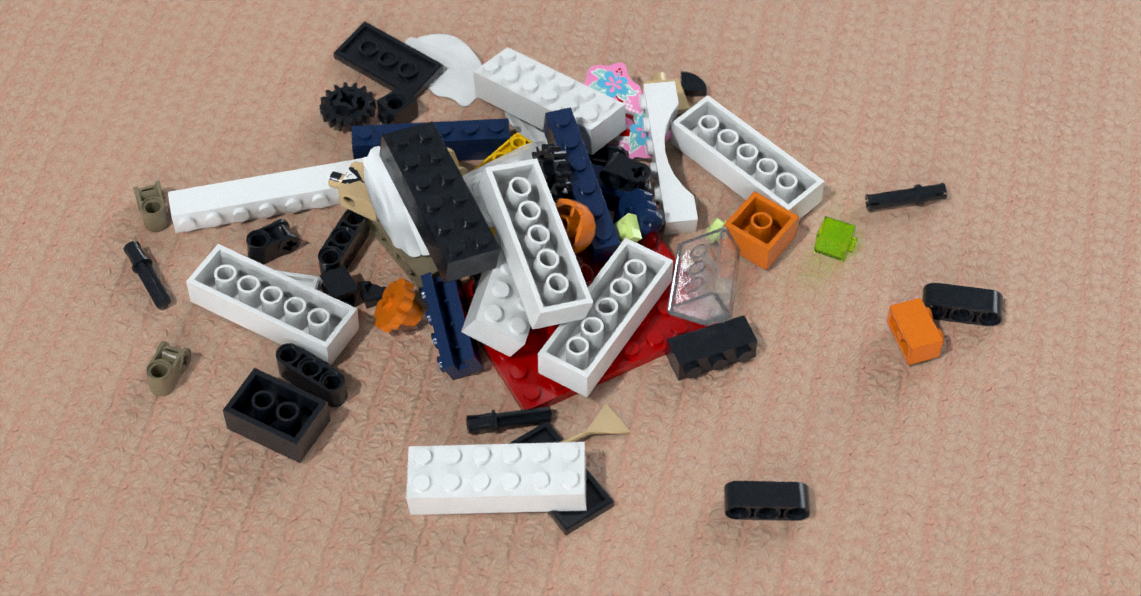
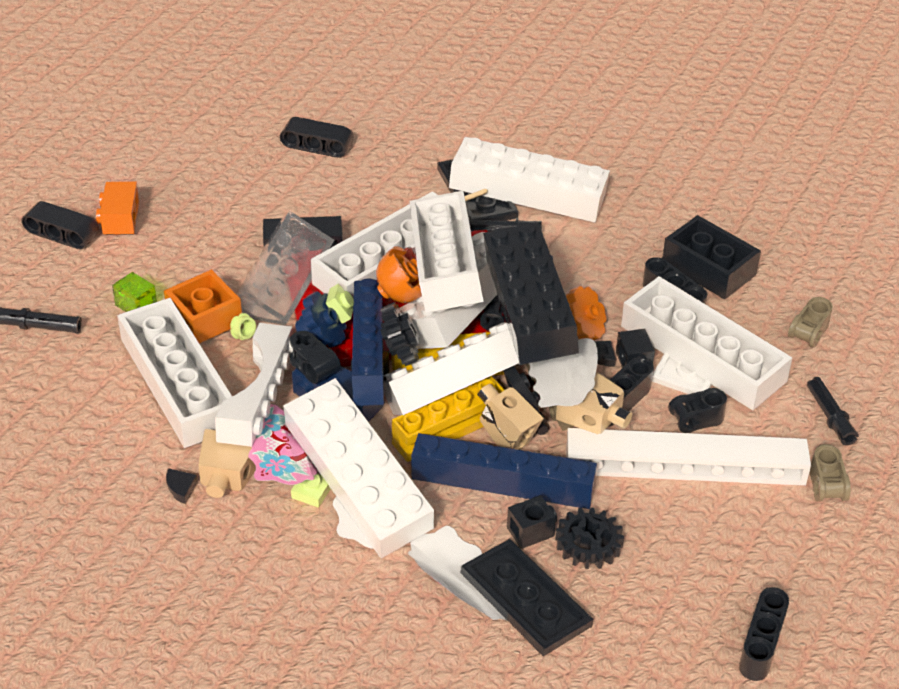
camera: 165 degrees left, 10 degrees down
(202, 65) = (764, 634): none -> black beam

